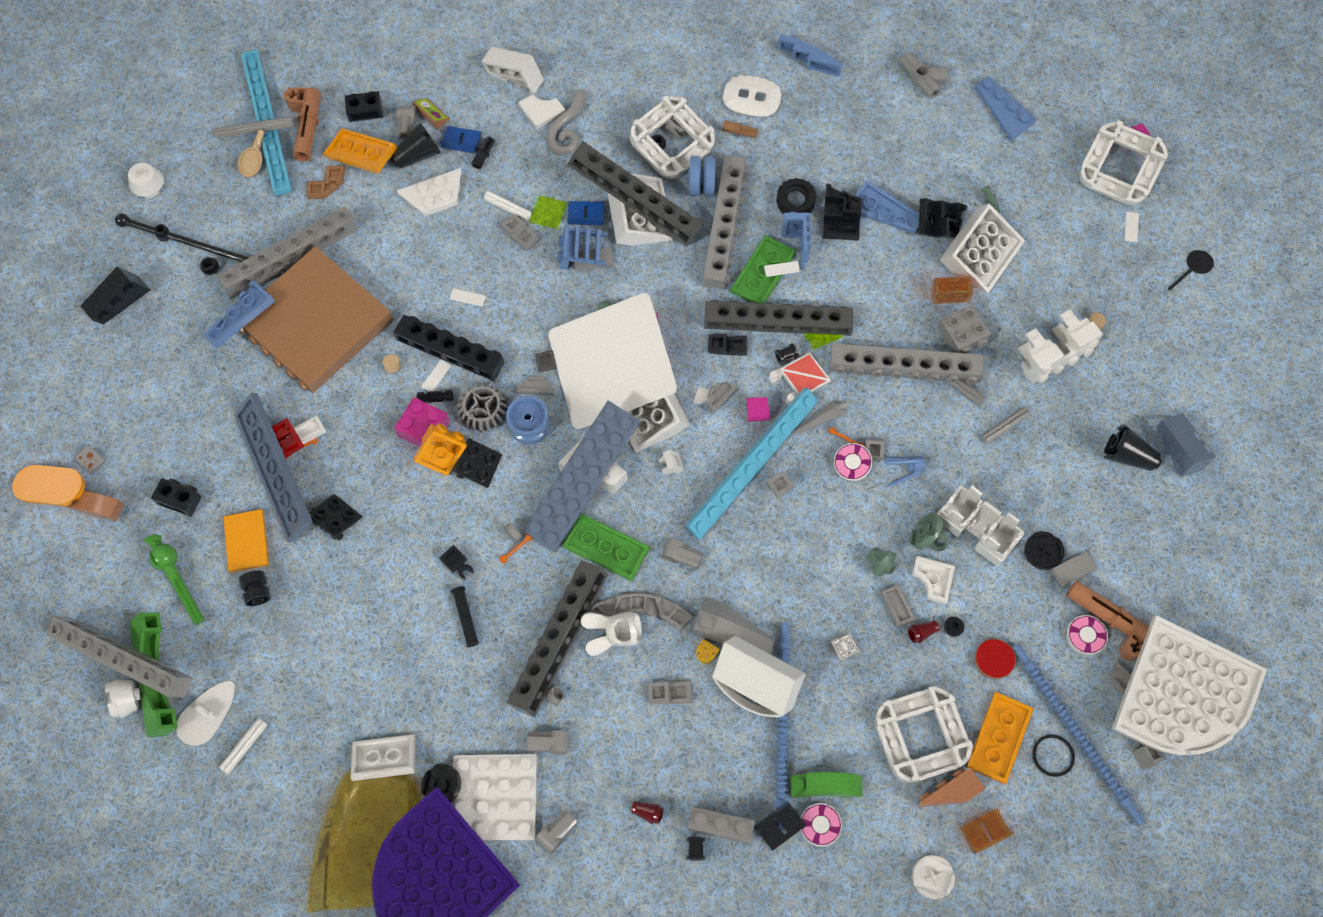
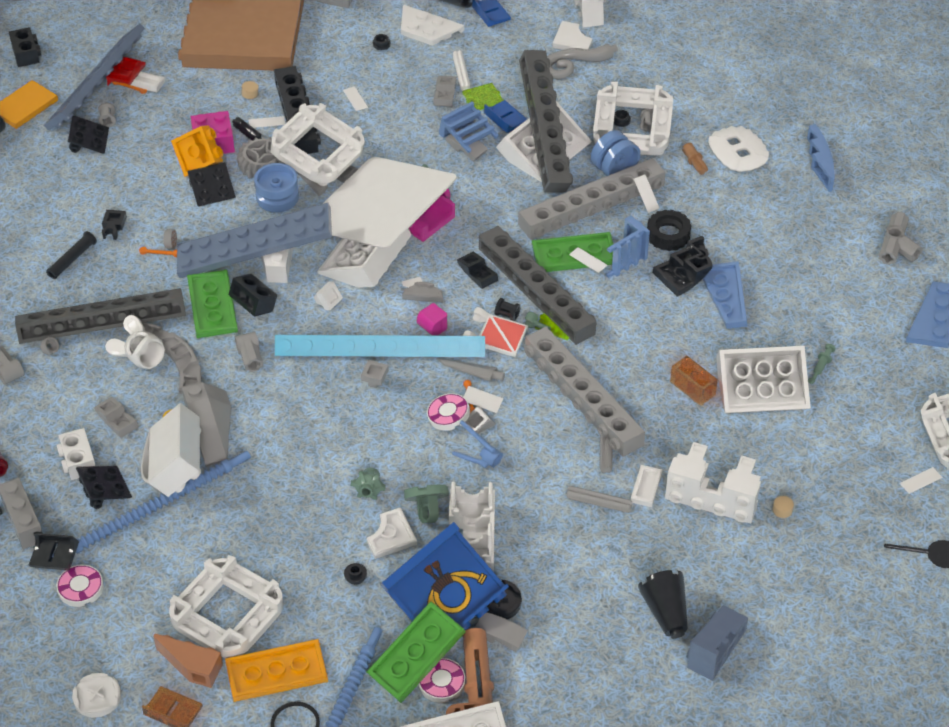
camera: 50 degrees right, 20 degrees down
(323, 486) = (109, 117): none -> light grey bush
(424, 232) = (381, 42): none -> black plate
(483, 152) = (493, 29): black axle -> none
(505, 336) = (326, 170): none -> white plate
(629, 513) = (252, 294): none -> black brick
(692, 741) = (76, 451): none -> white brick
(734, 745) = (102, 484): none -> black hinge
(751, 184) = (646, 193): none -> white sticker
(807, 347) = (531, 320): none -> sand green hand
(827, 784) = (120, 564): bright green arch -> none
(844, 646) = (264, 508): white tile -> none
(855, 431) = (483, 399): none -> white sticker
(897, 606) = (339, 523): light grey tile -> none
(922, 631) = (328, 551): dark red cone -> none
(939, 218) = (757, 329): black slope -> none
(964, 330) = (661, 410): light grey brick -> none
(995, 659) = (351, 622): red tile -> none
(1015, 387) = (646, 486): none -> white tile
(1031, 580) = (449, 576): none -> blue panel
(1061, 636) = (416, 652): none -> bright green tile

